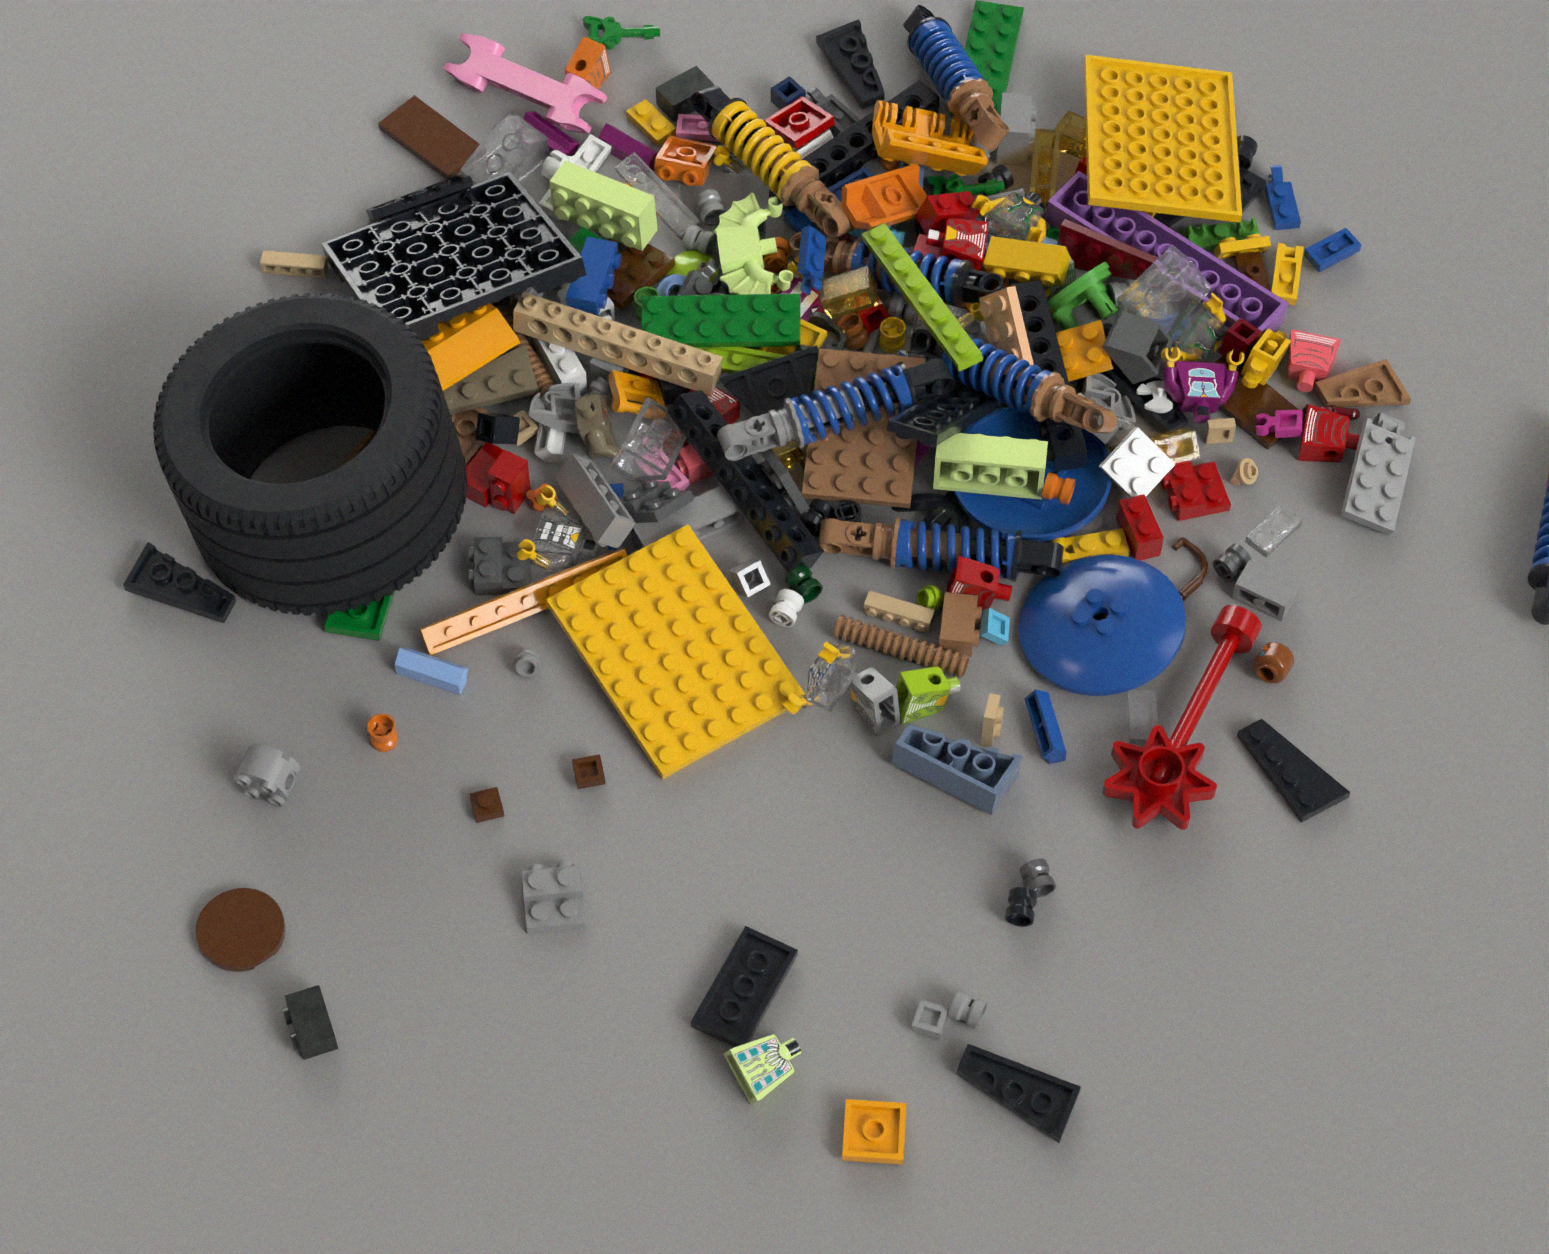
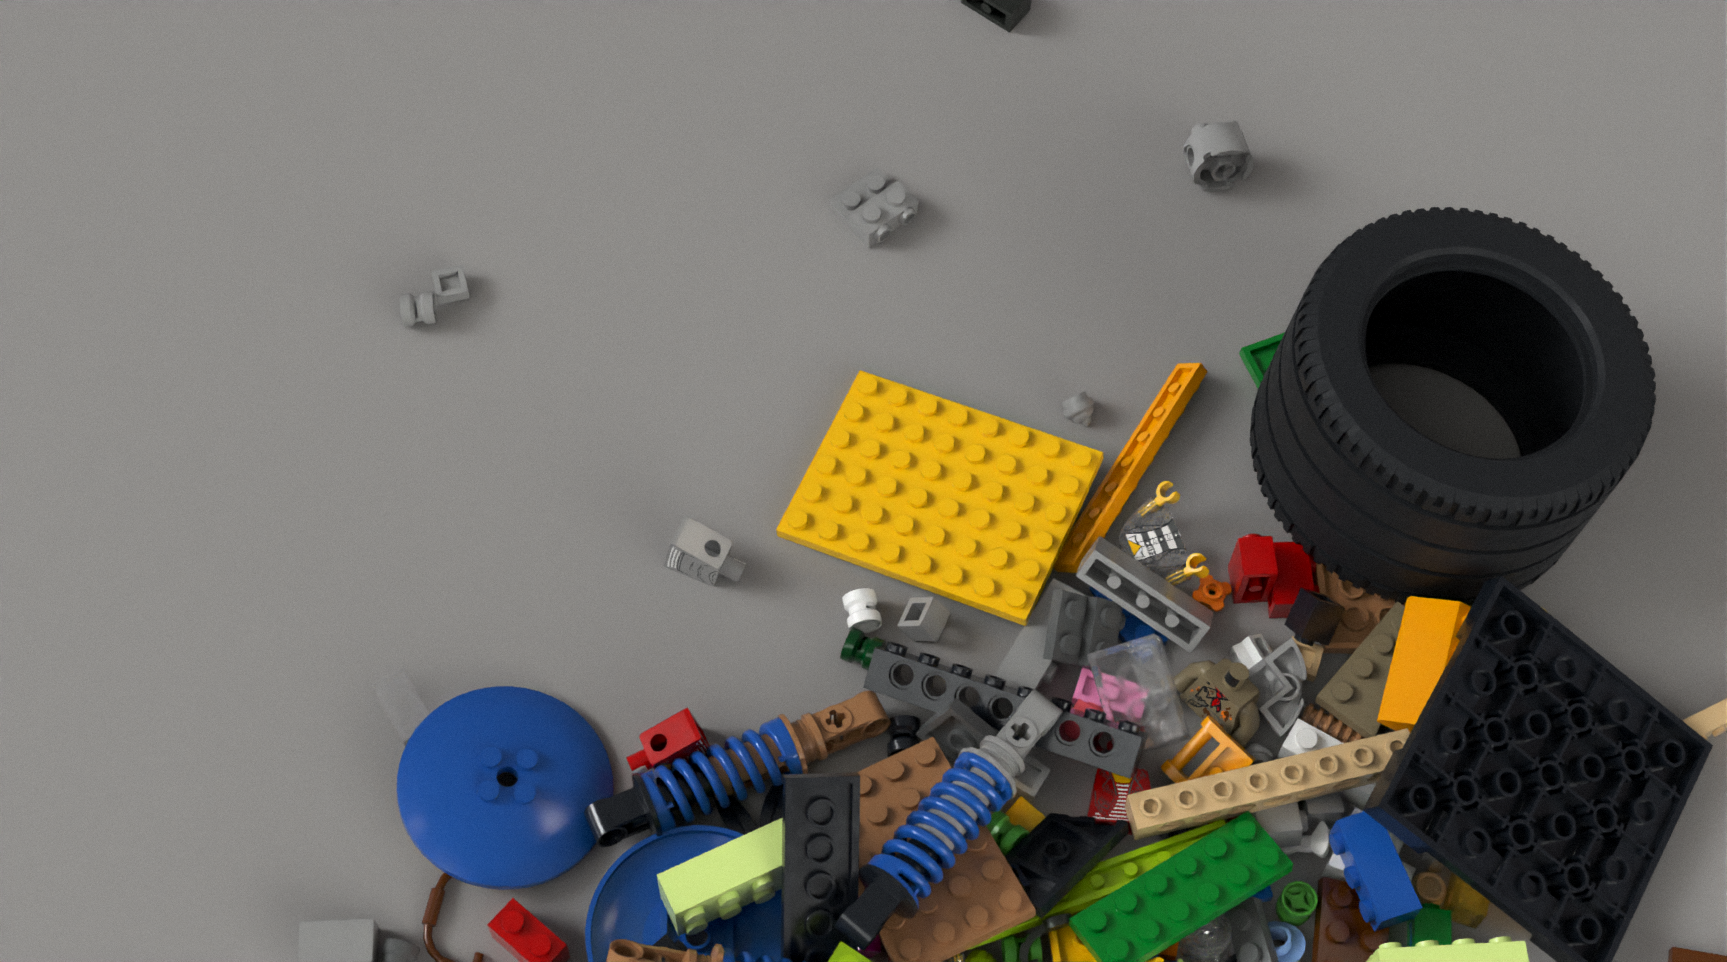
camera: 145 degrees right, 5 degrees up
(240, 929) = (1125, 40): reddish brown tile -> none
(382, 732) = (1153, 260): orange wheel -> none
(419, 196) = (1666, 892): black wing -> none
(431, 670) = (1161, 341): light blue piece -> none
(487, 804) = (1004, 257): reddish brown plate -> none
(497, 566) = (1200, 487): dark grey plate -> none
(588, 771) = (932, 334): reddish brown plate -> none
(744, 988) = (641, 222): black plate -> none
(762, 1065) = (578, 156): torso -> none
(827, 679) = (759, 543): clear torso -> none
(848, 511) = (868, 743): black wheel -> none
(874, 1131) = (443, 165): light orange plate -> none
(898, 611) = (742, 682): tan piece -> none
(900, 646) = (713, 639): medium nougat piece -> none
(924, 692) = (651, 588): lime torso -> none
(930, 597) = (715, 715): lime plate -> none
(957, 767) = (565, 530): sand blue wedge -> none
(958, 623) = (662, 691): medium nougat brick -> none
(992, 720) = (558, 592): tan plate -> none
(994, 626) = (625, 719): medium azure plate -> none
(1022, 902) = (421, 431): black wheel -> none
(1025, 1091) = (314, 271): black wing -> none
(1037, 877) = (420, 468): flat silver wheel -> none
(1048, 725) = (503, 636): blue piece -> none
(1058, 488) = (643, 907): orange wheel -> none
(1100, 543) = (572, 893): yellow plate -> none
(1163, 772) = (343, 641): red piece -> none
(1273, 662) = (286, 855): dark orange head -> none
(1293, 774) = (203, 738): black wing -> none

